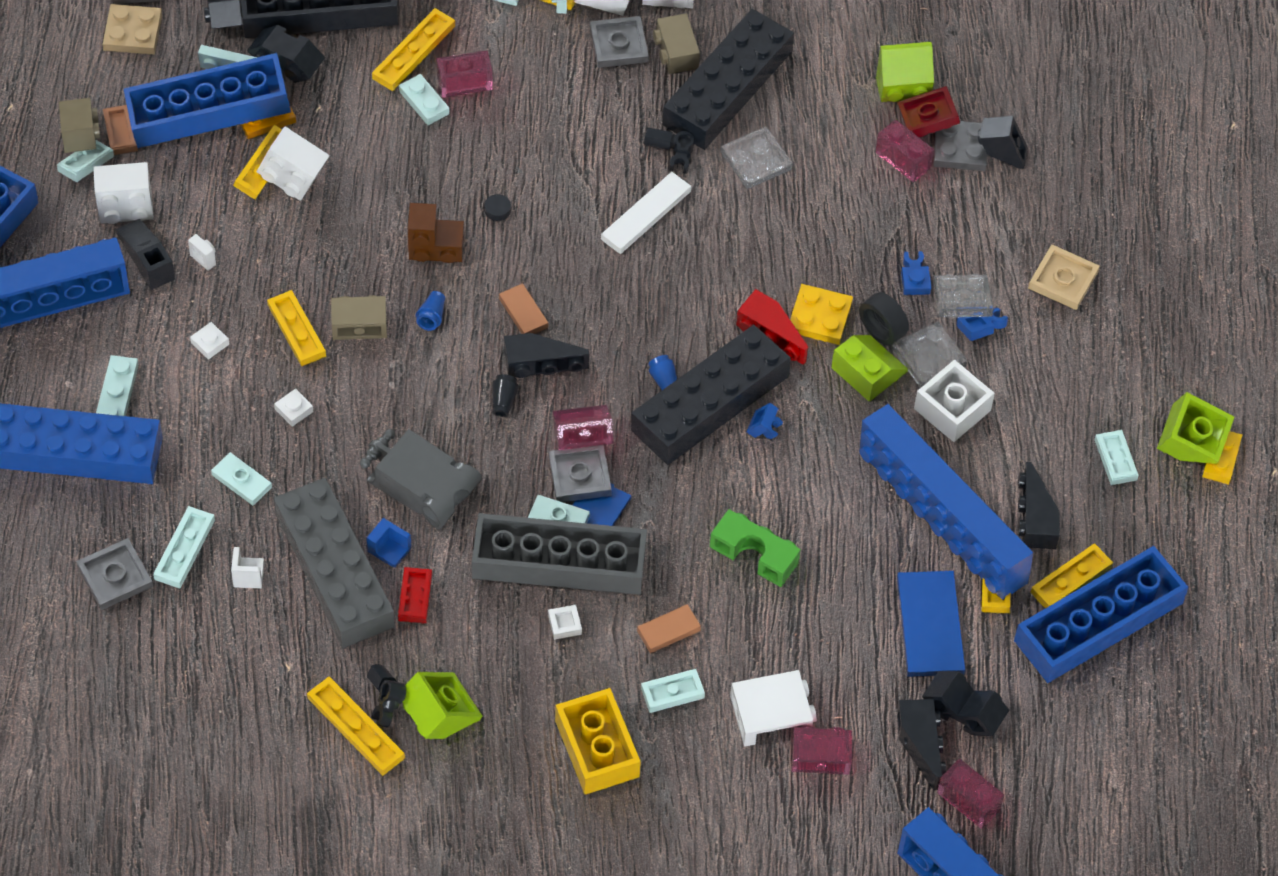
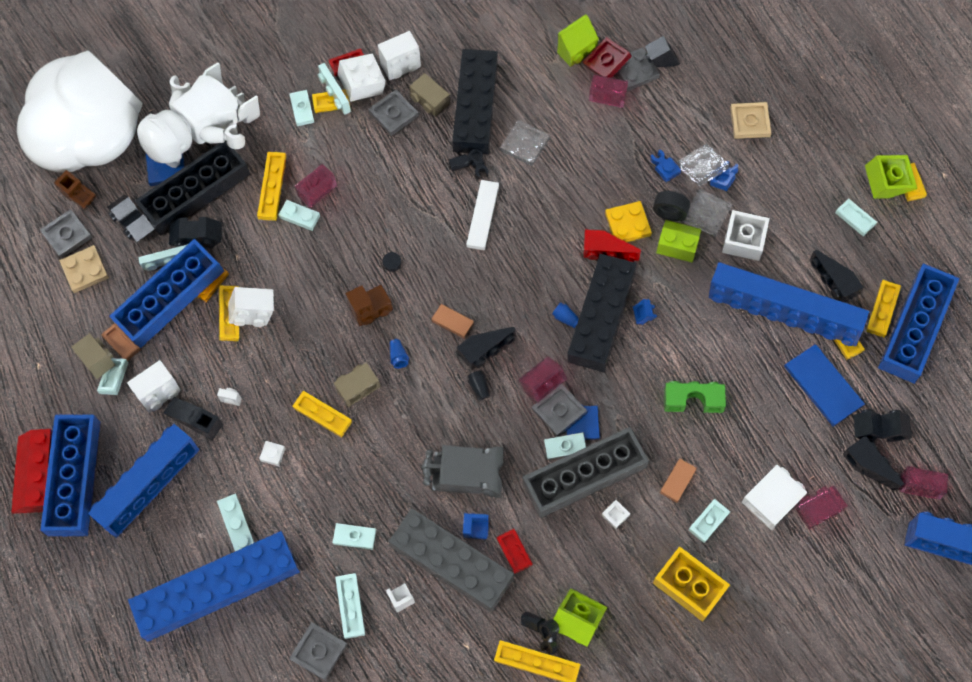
camera: 25 degrees left, 10 degrees up
(293, 407) = (355, 468): white plate -> none

